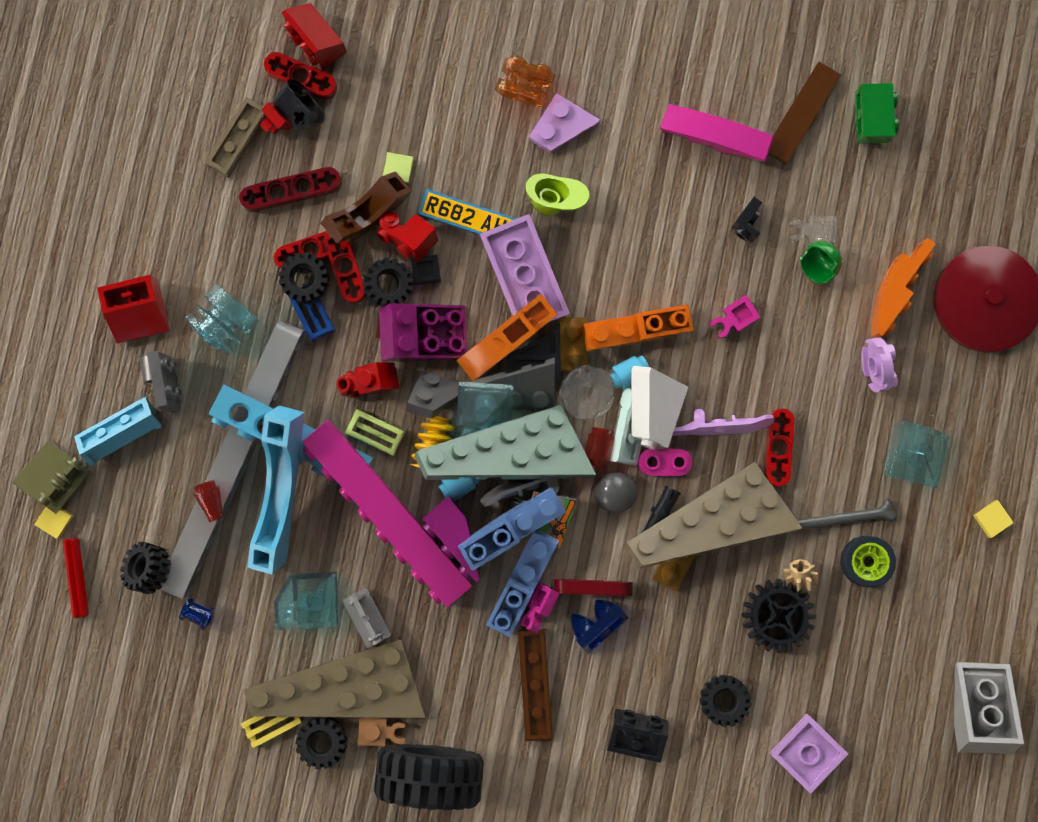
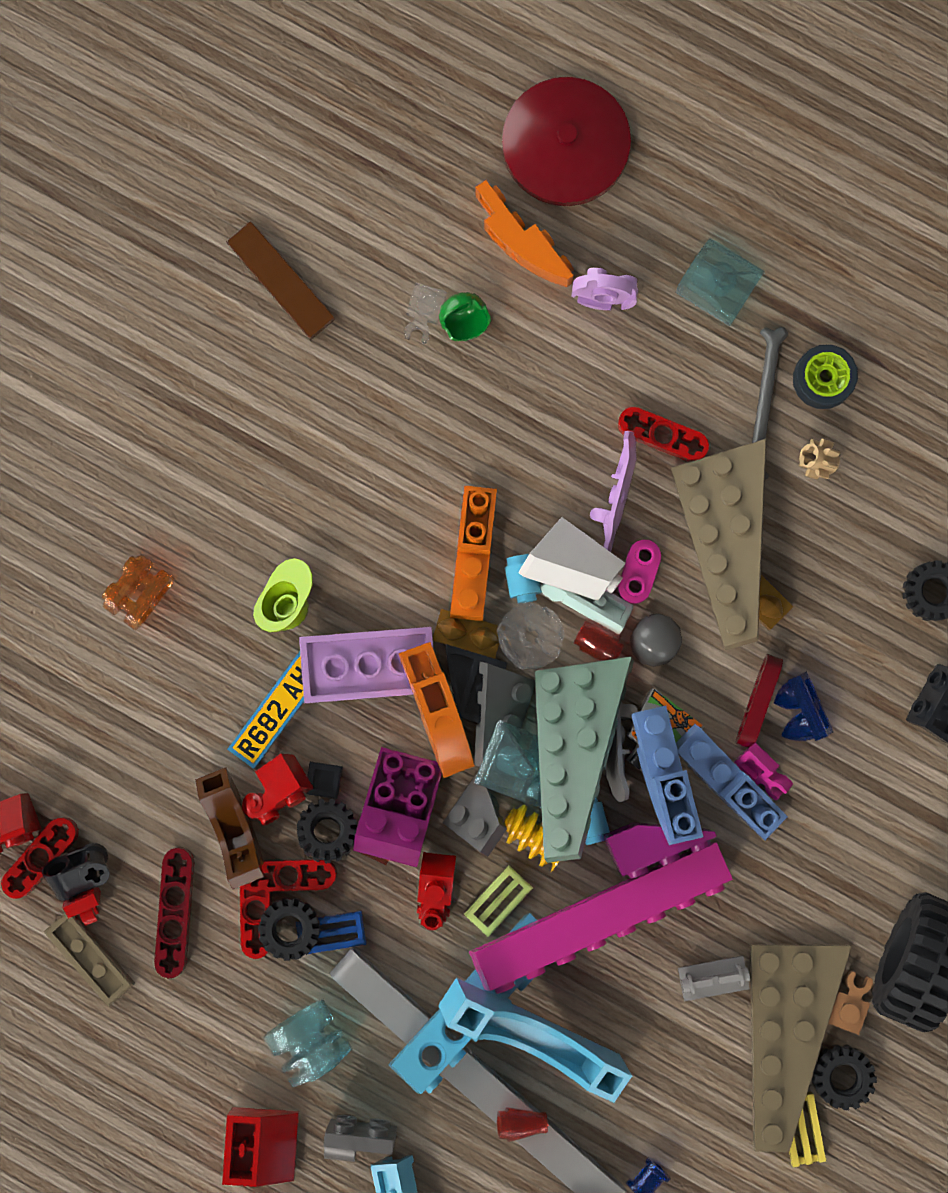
camera: 70 degrees left, 0 degrees up
(307, 602) = (675, 1043): clear light blue slope -> none
(401, 164) = (187, 771): yellowish green tile -> none
(535, 685) = (851, 804): reddish brown tile -> none
(561, 124) = (201, 565): lavender wing -> none
(663, 507) = (693, 592): black pin -> none
(717, 132) = (272, 386): dark pink slope -> none
(738, 315) = (495, 431): dark pink plate -> none
(748, 215) = (381, 382): black bracket -> none
(789, 608) = (882, 489): black gear -> none
(876, 113) = (310, 197): green brick -> none
(993, 519) = (819, 219): light yellow tile -> none

